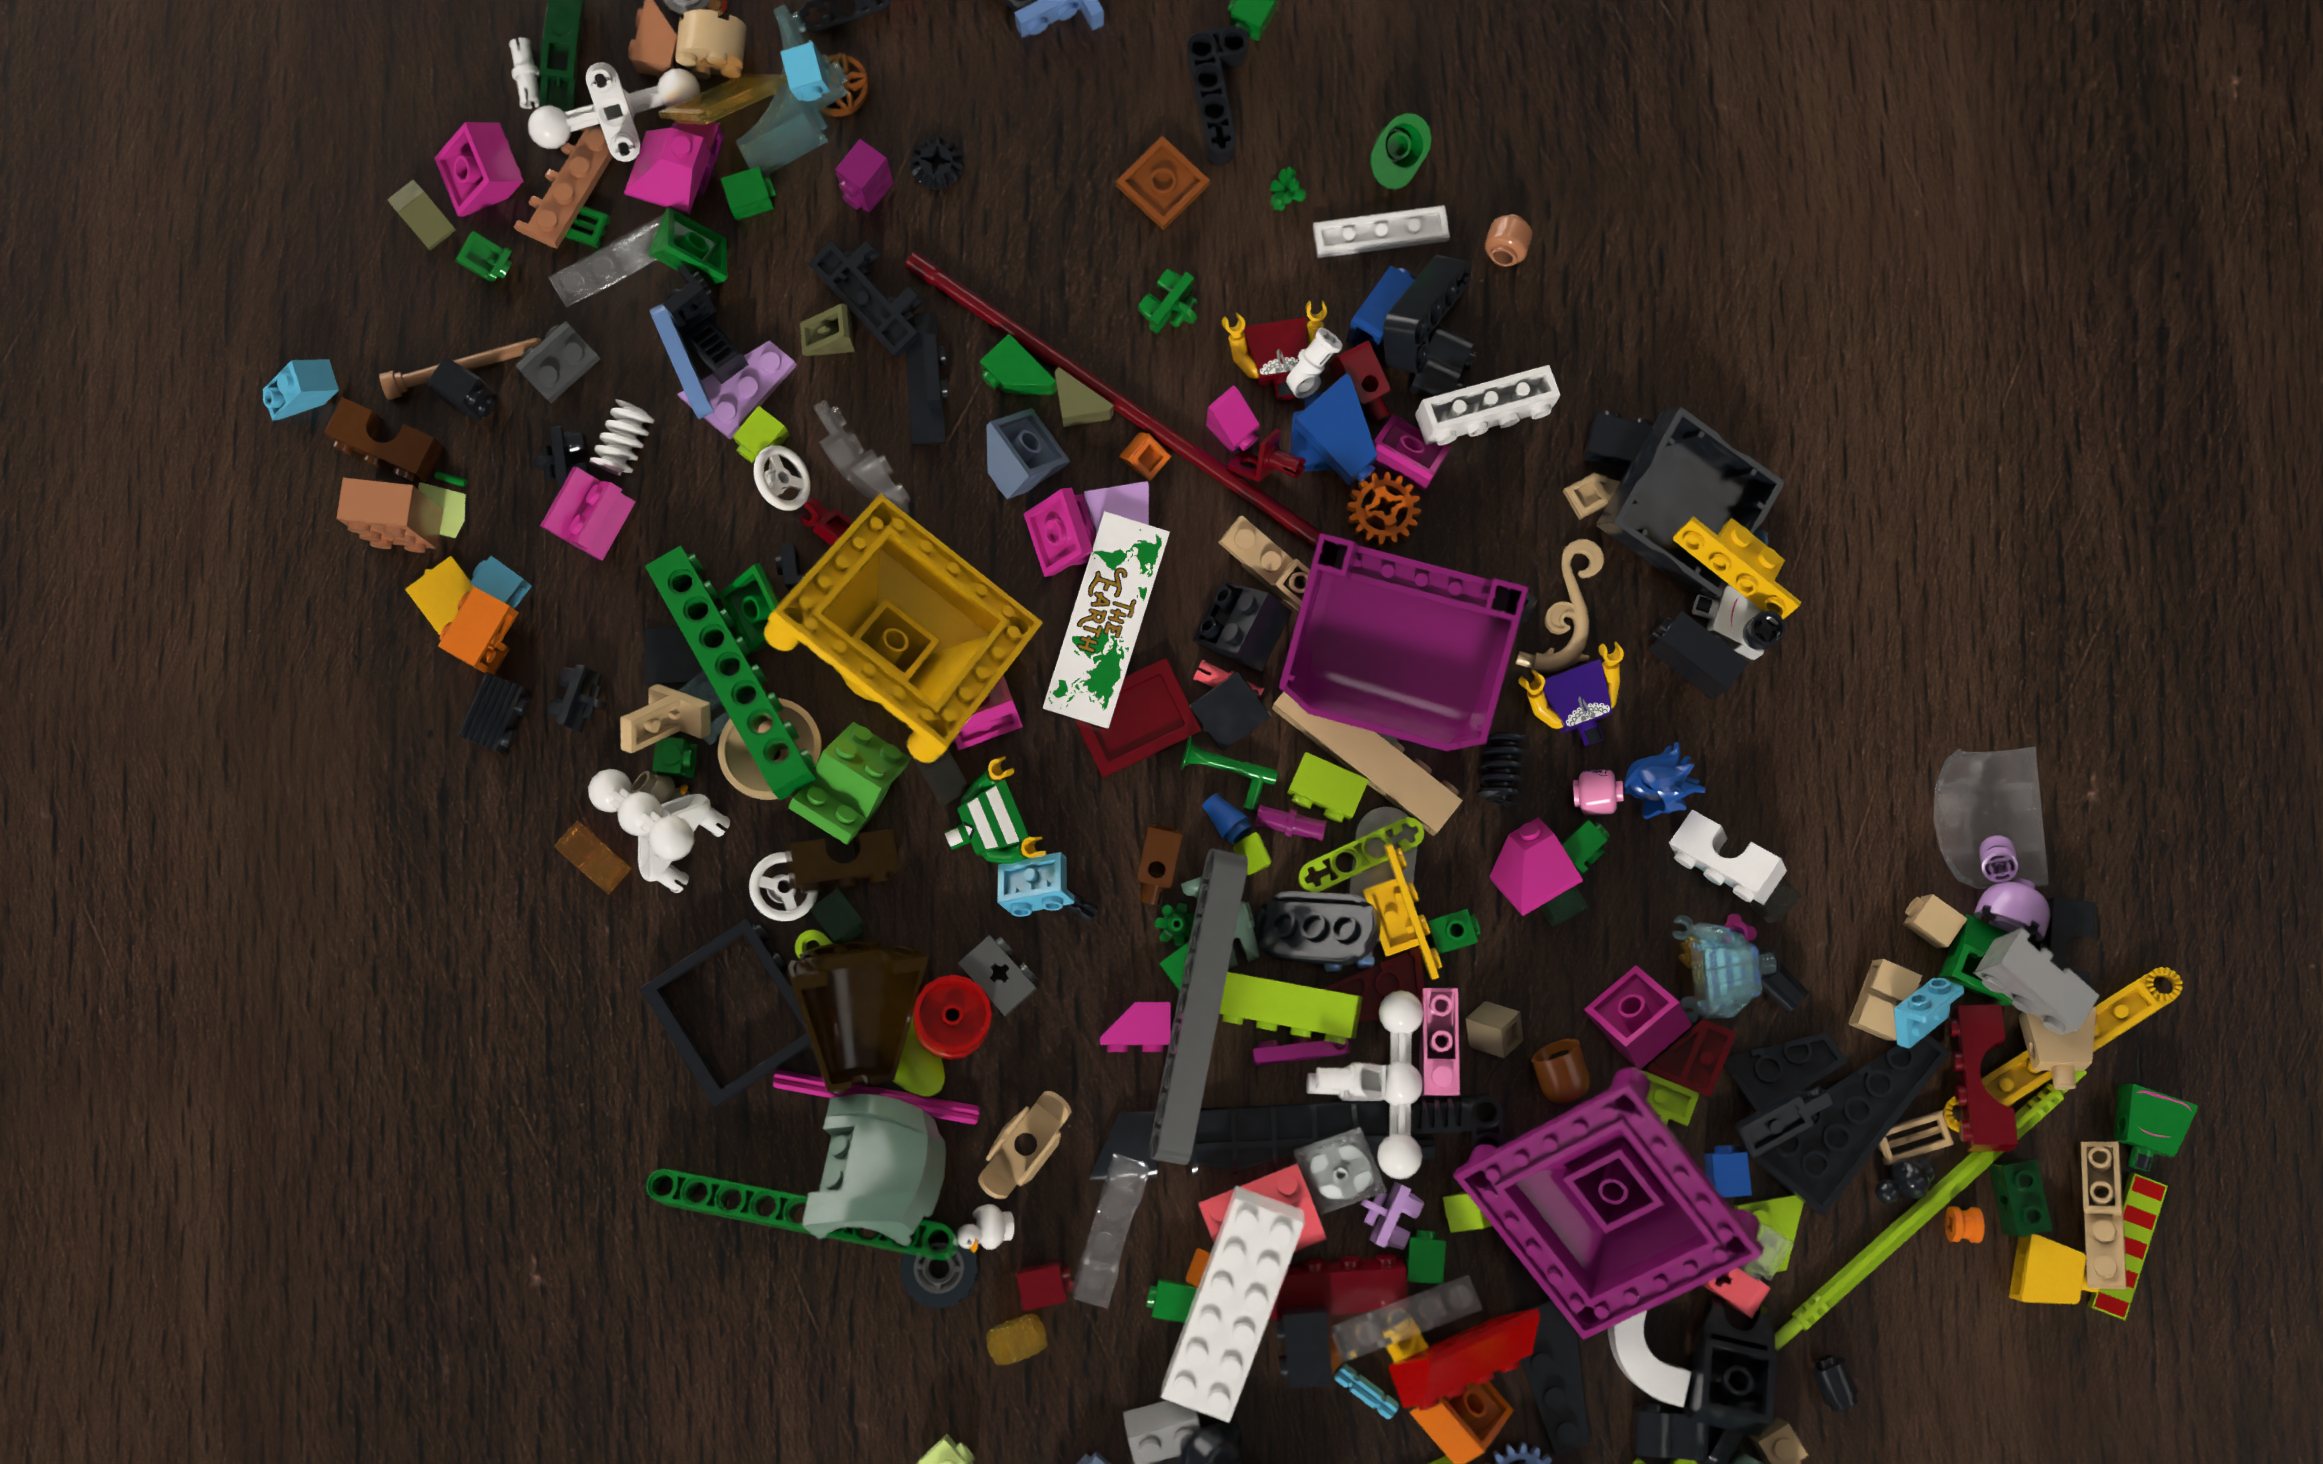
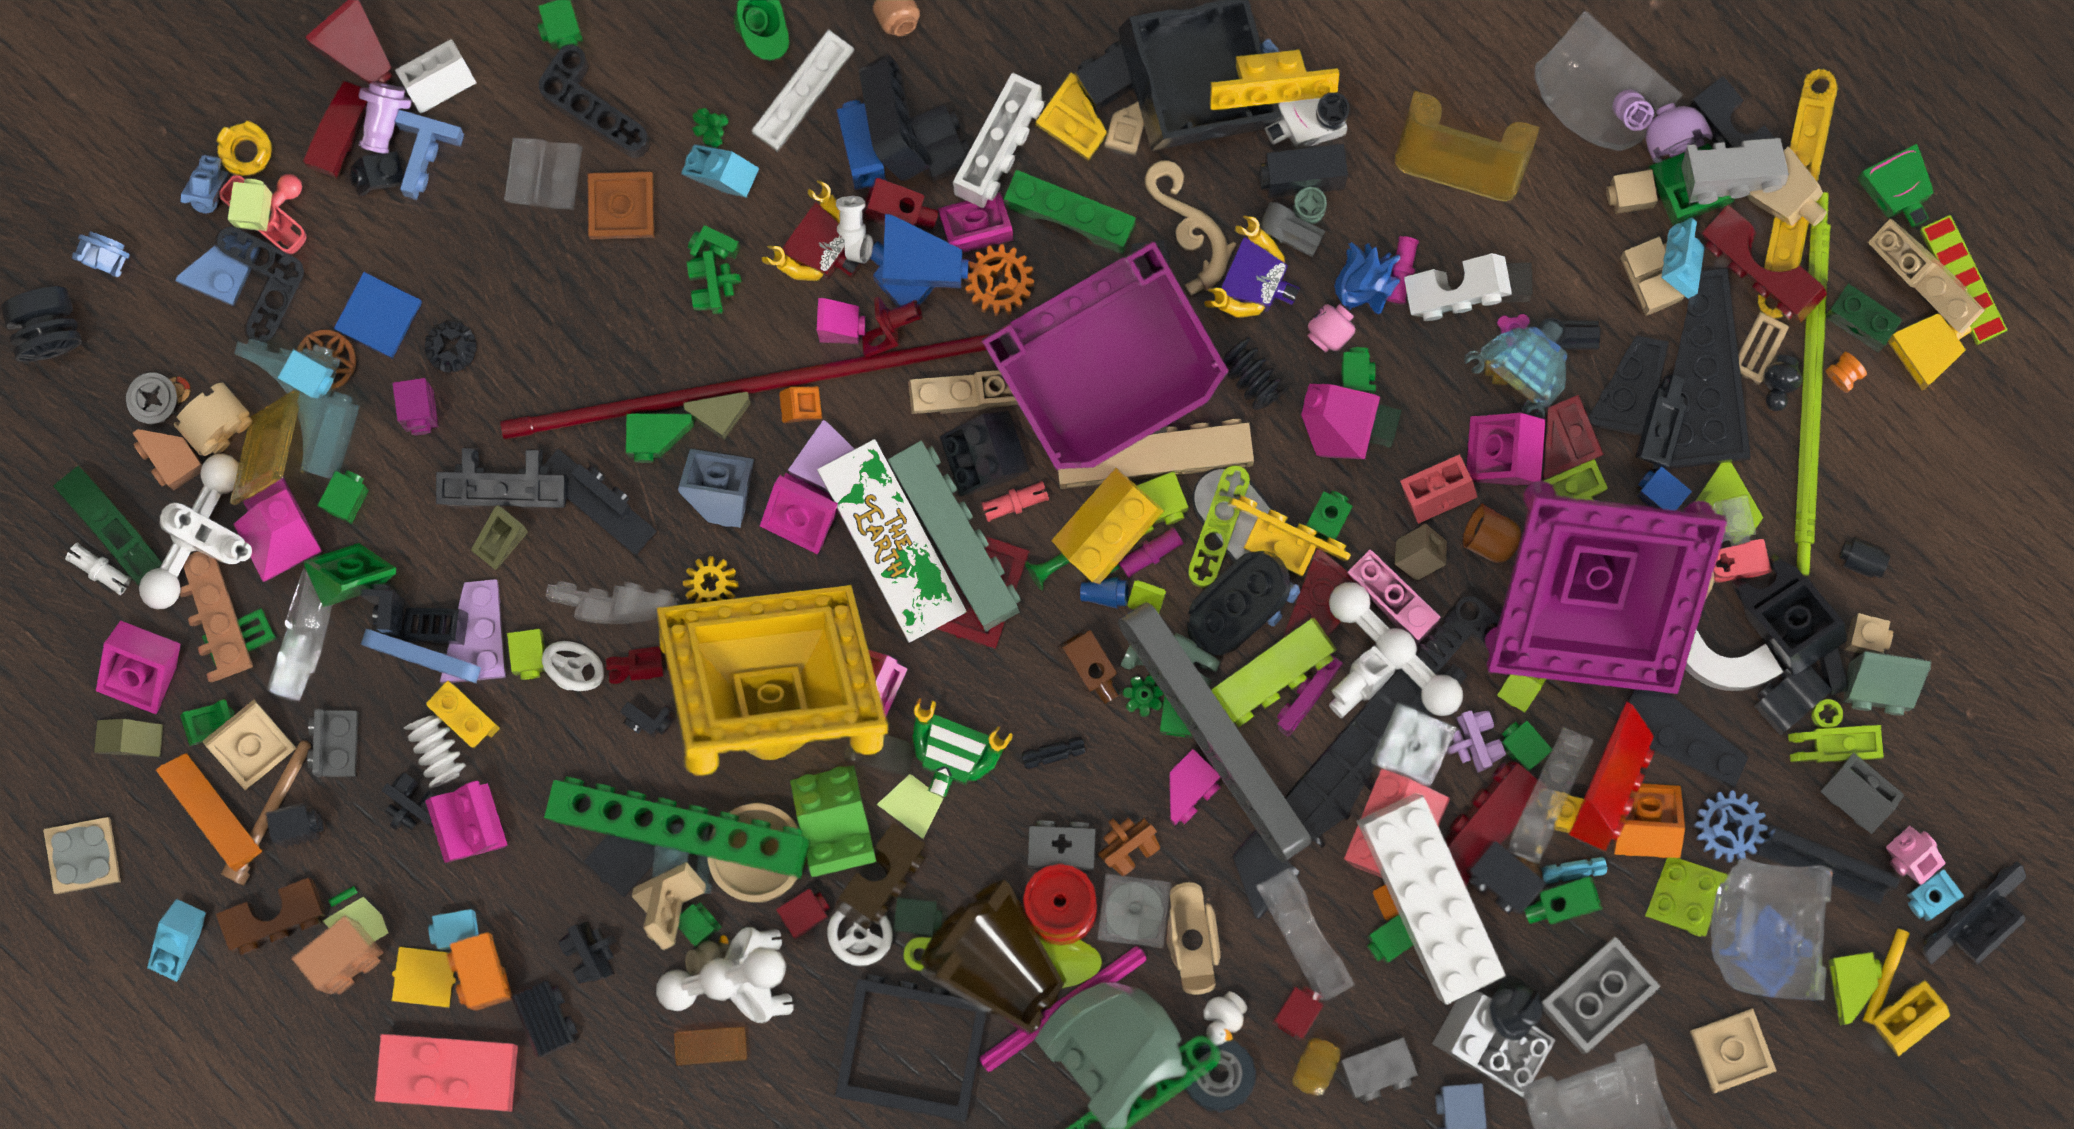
camera: 40 degrees left, 0 degrees up
(301, 263) = (82, 855): none -> light grey piece
(384, 680) = (446, 1073): none -> coral brick
(416, 320) = (209, 811): none -> orange slope
(495, 301) = (249, 744): none -> tan tile
(667, 432) = (461, 715): none -> yellow bracket
(750, 604) = (647, 771): green slope -> none
(760, 828) = (803, 912): none -> dark red brick
(908, 90) = (378, 315): none -> blue tile
(923, 830) = (912, 805): none -> yellowish green sticker
(937, 510) = (714, 572): none -> yellow gear
(1003, 1078) = (1134, 911): none -> clear piece
(1034, 885) = (1024, 764): medium azure bracket -> none
(1052, 1018) = (1125, 839): none -> dark orange hips
(1063, 1390) = (1378, 1069): none -> flat silver brick
(1131, 106) = (543, 173): none -> clear slope
(1156, 663) = (954, 536): none -> sand green brick
(1204, 280) = (719, 243): none -> green bracket
(1230, 710) = (1034, 517): black piece -> none
(1261, 228) = (720, 170): none -> medium azure slope
(1276, 770) = (1107, 526): none -> yellow slope
(1349, 1416) = (1580, 900): none -> green torso
(1497, 529) = (1052, 203): none -> green arch
(1557, 995) = (1438, 489): none -> coral brick
(1559, 446) = (1072, 119): none -> yellow wing
(1639, 685) = (1286, 228): none -> dark grey piece
(1679, 682) = (1312, 200): none -> sand green wheel
(1715, 791) = (1404, 267): none -> dark pink pin
(1829, 764) = (1461, 157): none -> clear yellow windscreen

